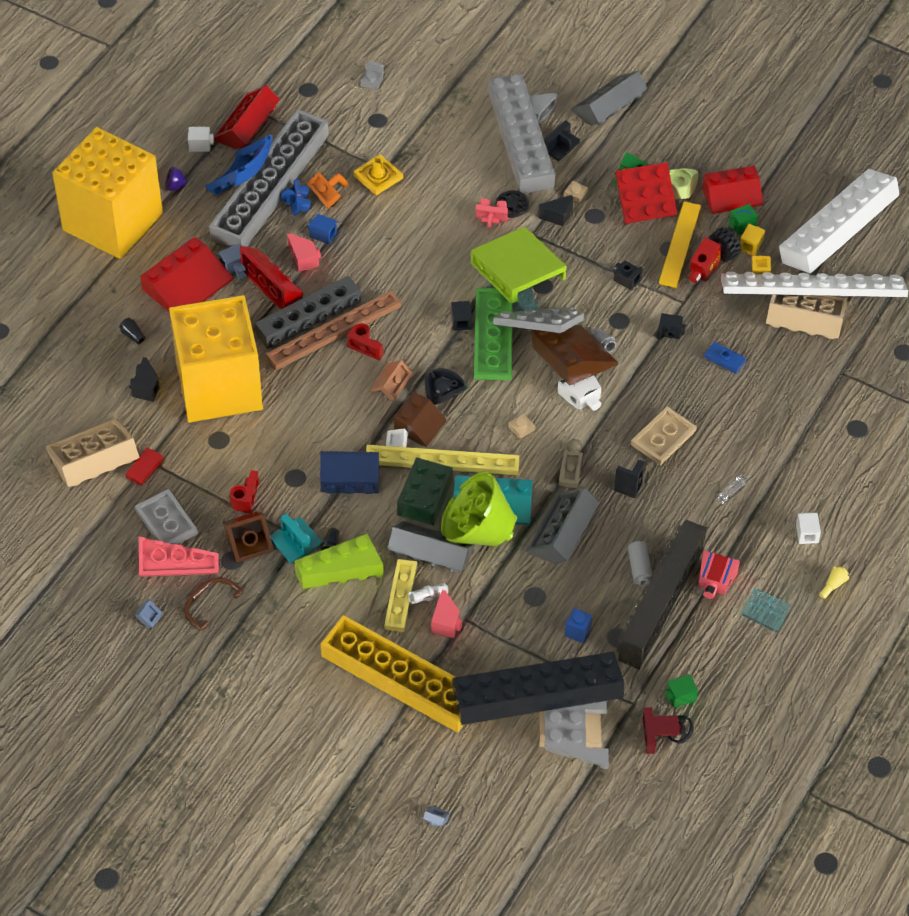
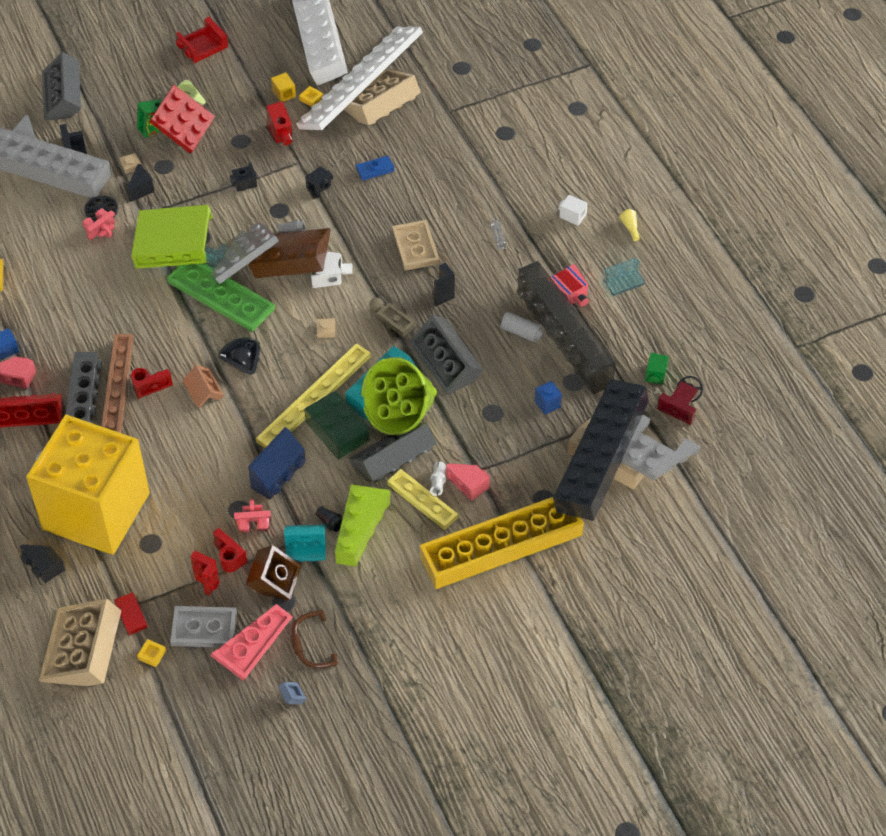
camera: 55 degrees left, 0 degrees up
(118, 501) = (151, 653): none -> yellow plate
(208, 490) = (205, 571): none -> red bracket
(283, 485) = (255, 515): none -> coral hips
(397, 438) = (267, 414): white plate -> none
(419, 419) = (261, 390): reddish brown slope -> none
(436, 816) = (652, 592): sand blue plate -> none
(461, 315) = (184, 303): black brick -> none
(680, 244) = (244, 132): yellow tile -> none
(728, 243) = (272, 97): black tyre -> none
(732, 189) = (225, 70): red slope -> none
(741, 218) = (259, 80): green brick -> none
(750, 153) = (203, 41): none -> red panel

